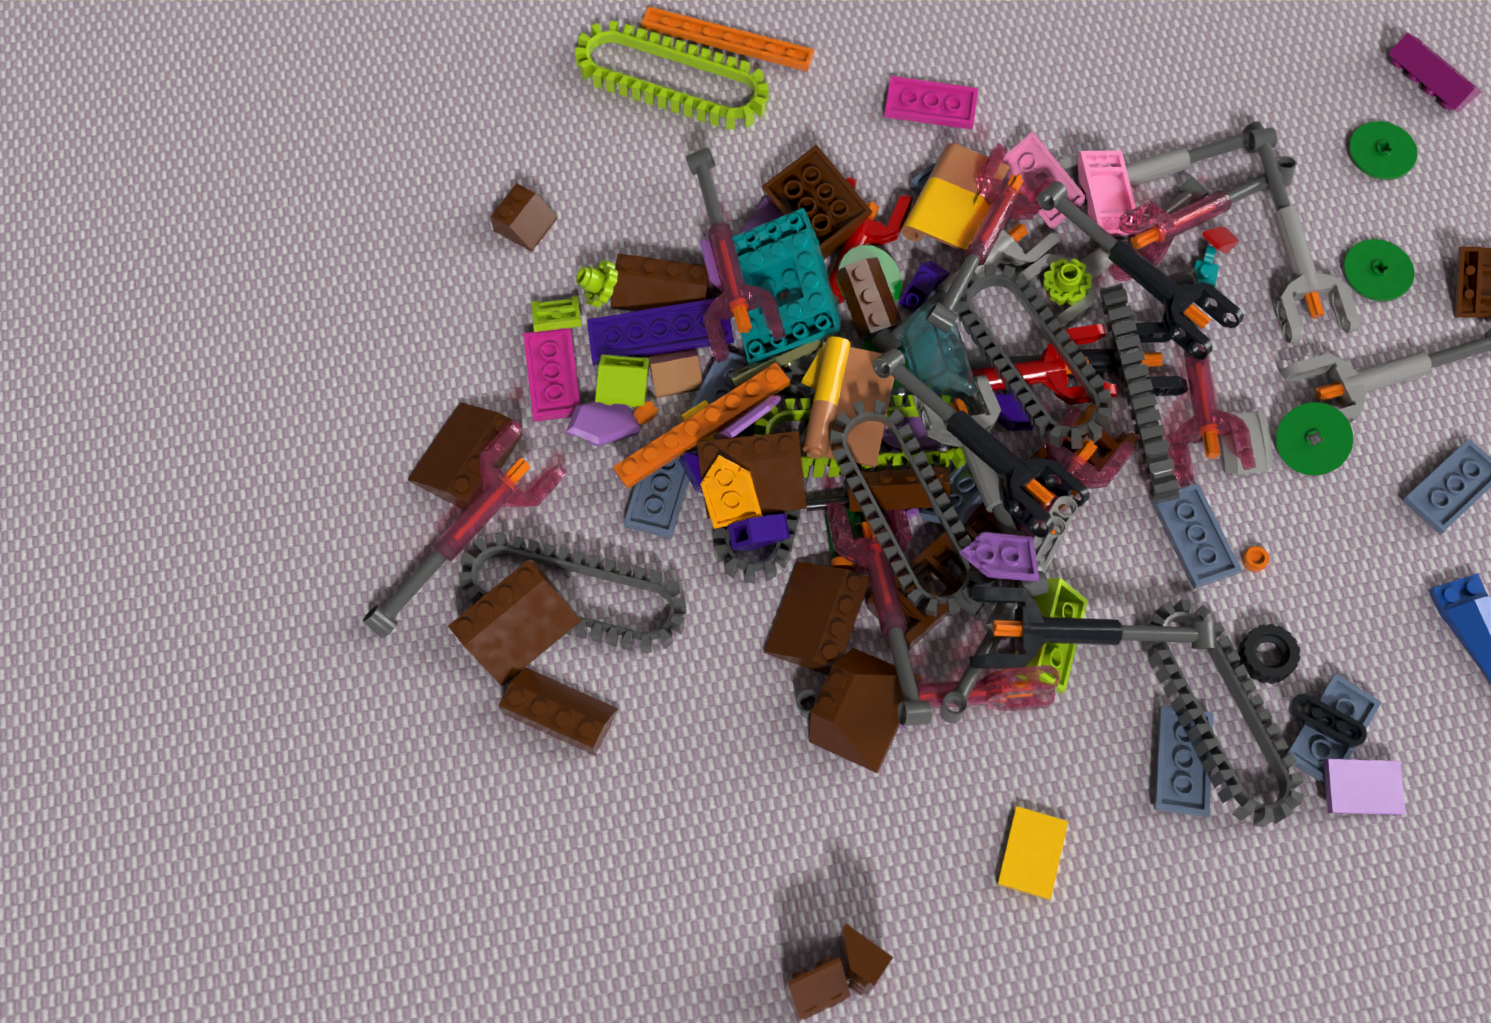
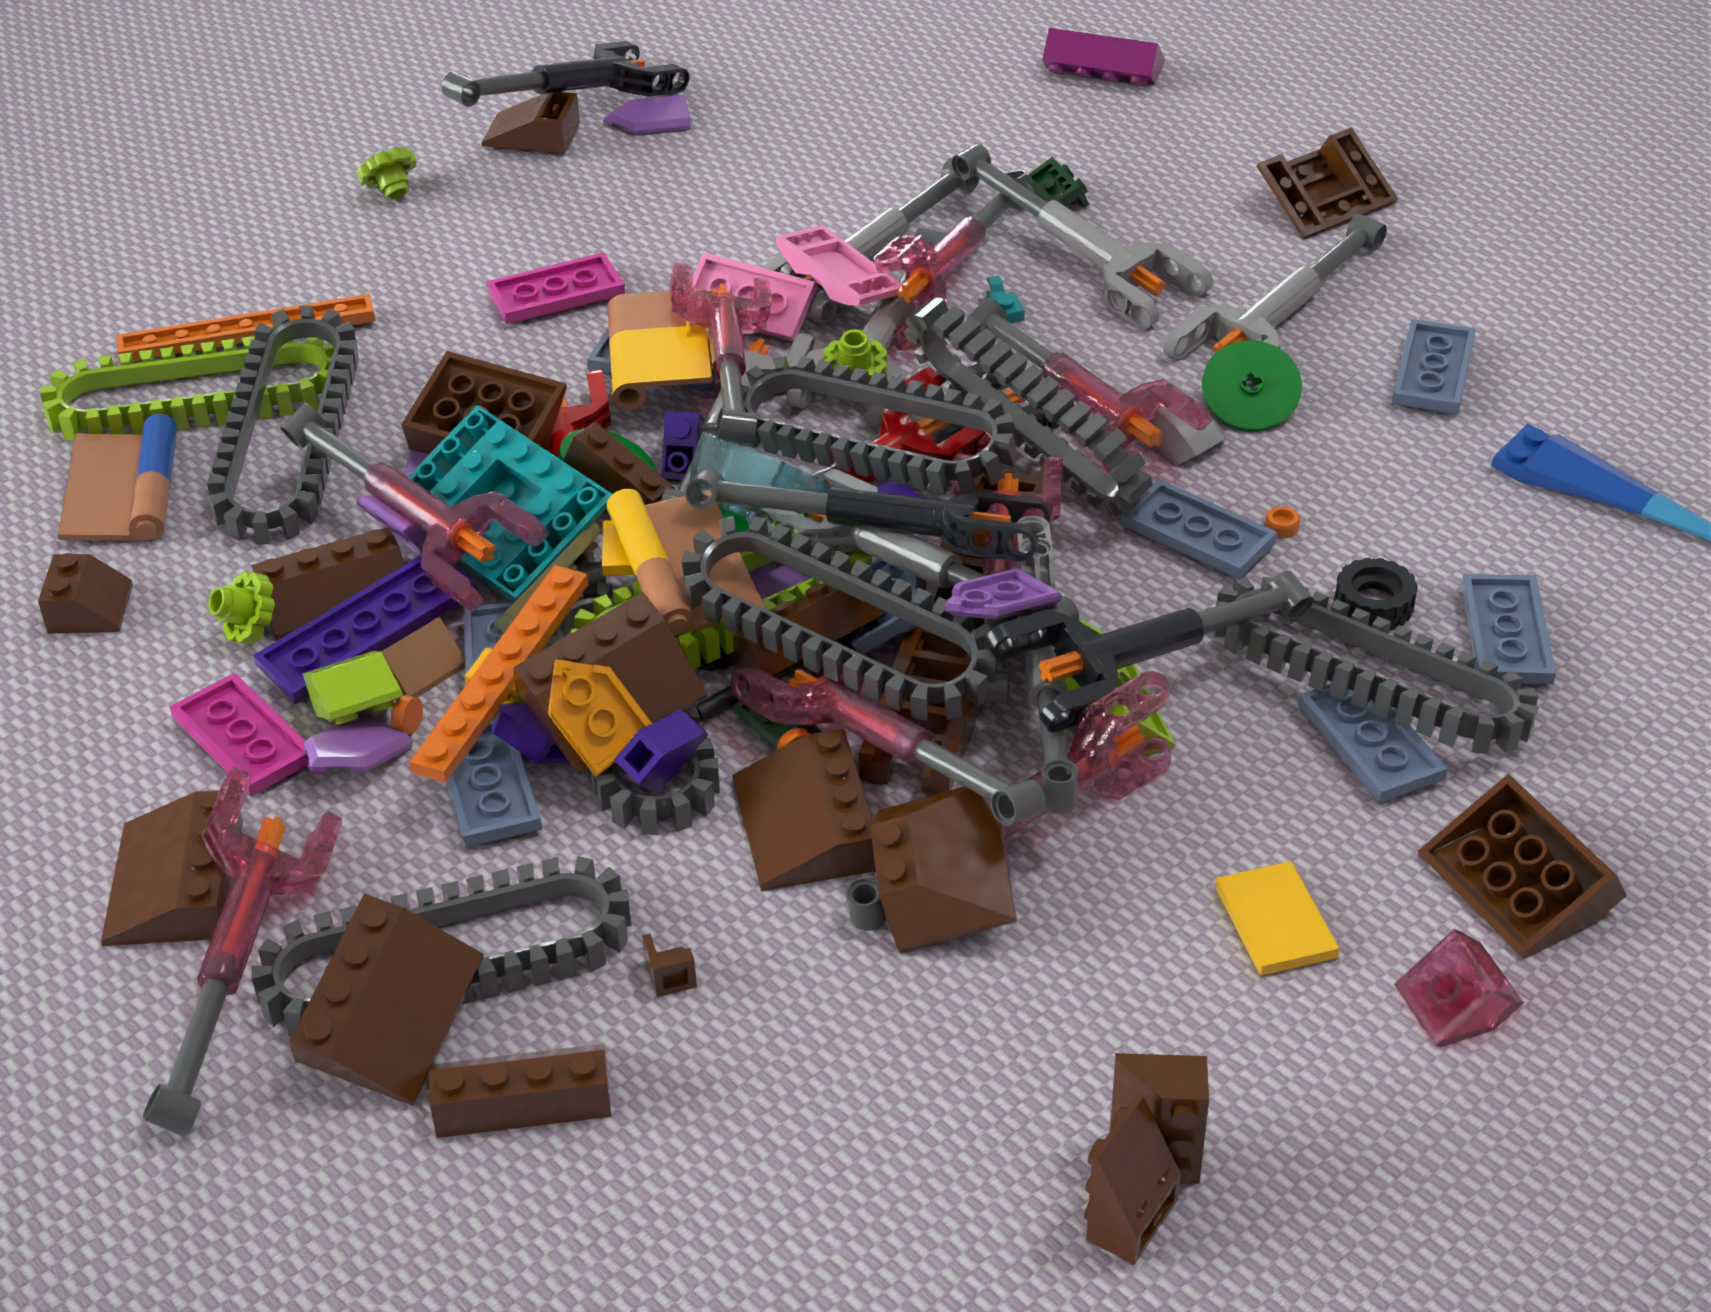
camera: 30 degrees left, 25 degrees down
(556, 314) = (204, 669): lime plate -> none
(588, 134) = (120, 484): none -> nougat door
(679, 124) = (244, 414): none -> dark grey piece
(680, 678) = (669, 969): none -> reddish brown panel
(747, 418) = (565, 618): medium lavender tile -> none
(1096, 972) = (1458, 990): none -> clear pink slope
(1176, 299) = (1004, 317): black piece -> none
(1197, 913) = (1522, 869): none -> reddish brown slope
(1221, 239) = (994, 266): red slope -> none
(1314, 181) = (1056, 183): none -> dark green bracket
(1338, 722) = (1495, 612): black plate -> none
(1364, 787) = (1589, 658): tile -> none
(1367, 155) = (1105, 138): green piece -> none
(1387, 257) = (1191, 229): green piece -> none

